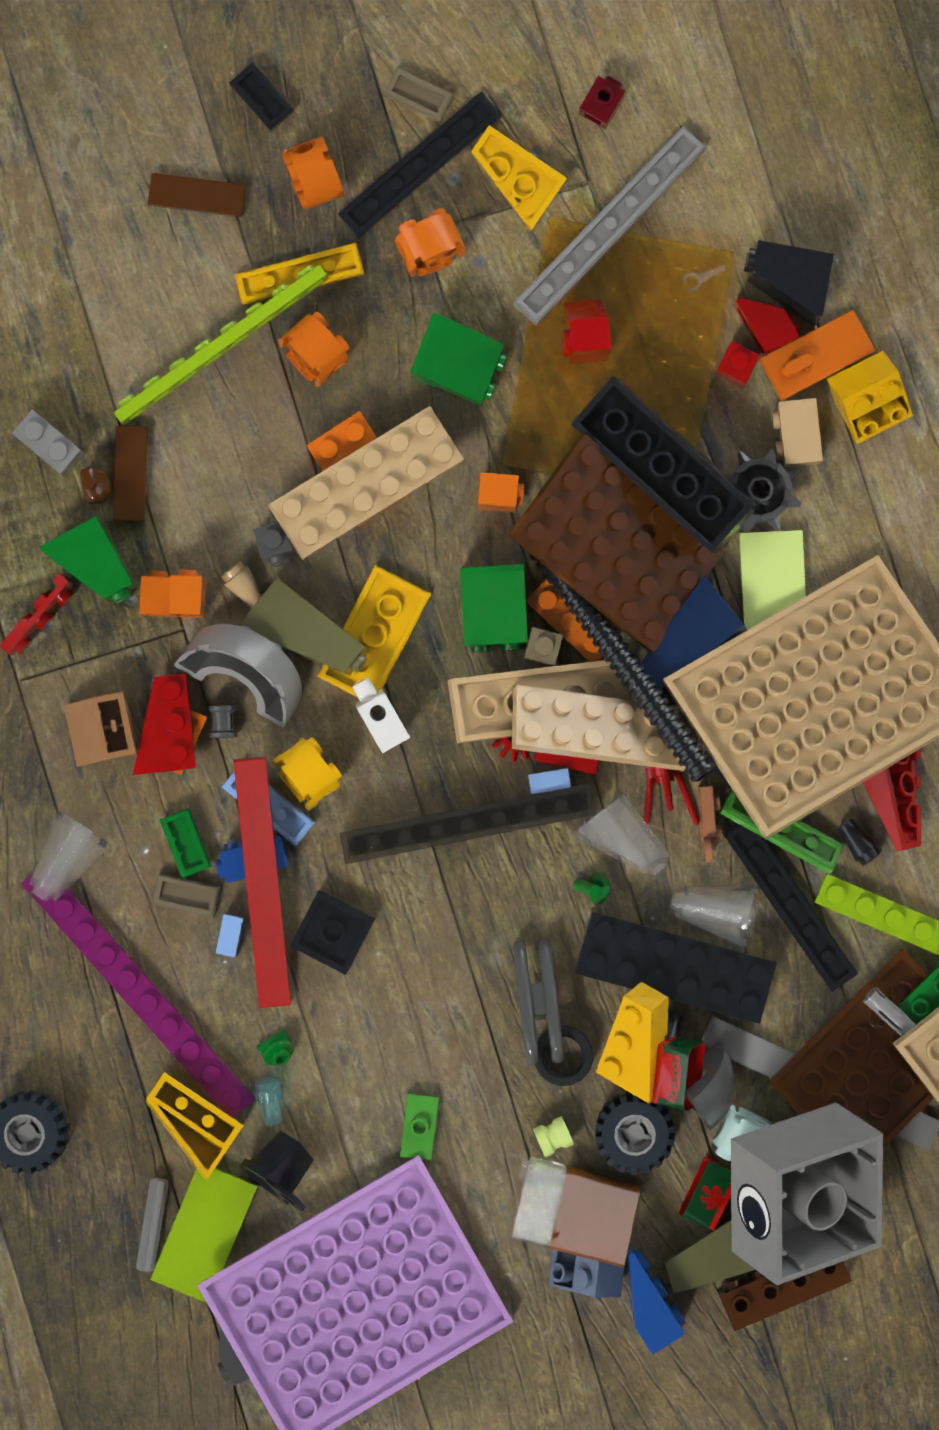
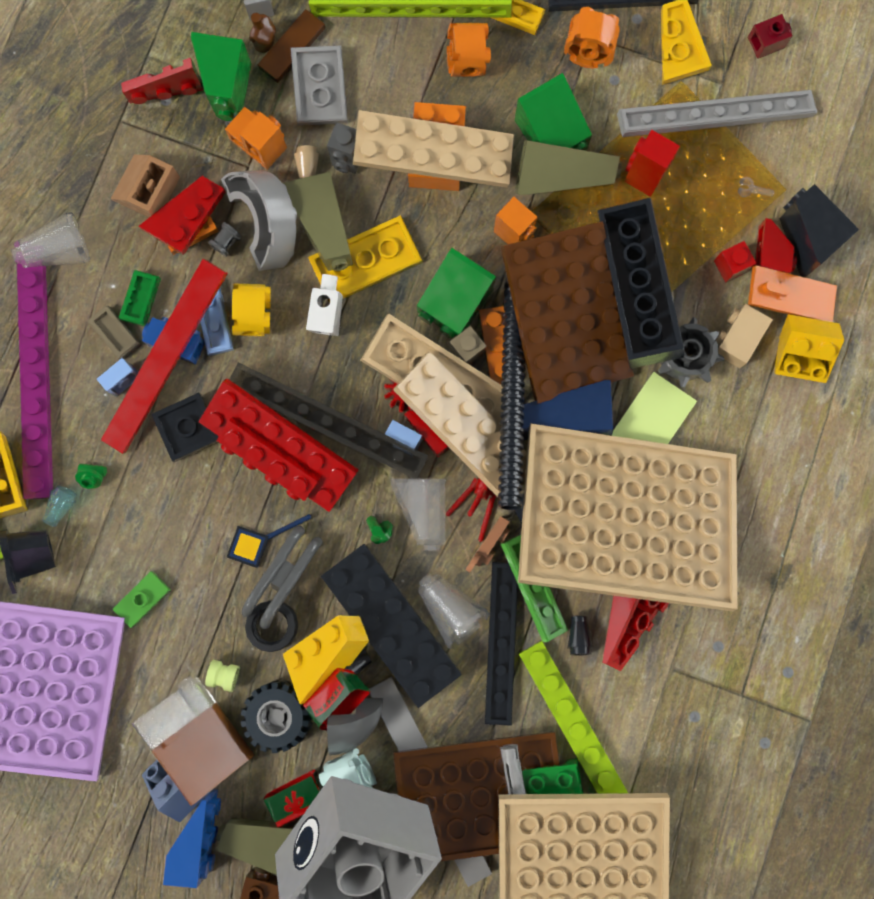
camera: 45 degrees right, 5 degrees down
(191, 494) = (319, 85): none -> light grey tile
(438, 885) = (276, 447): none -> red plate
(481, 997) = (249, 545): none -> piece
(503, 403) = (563, 168): none -> olive slope

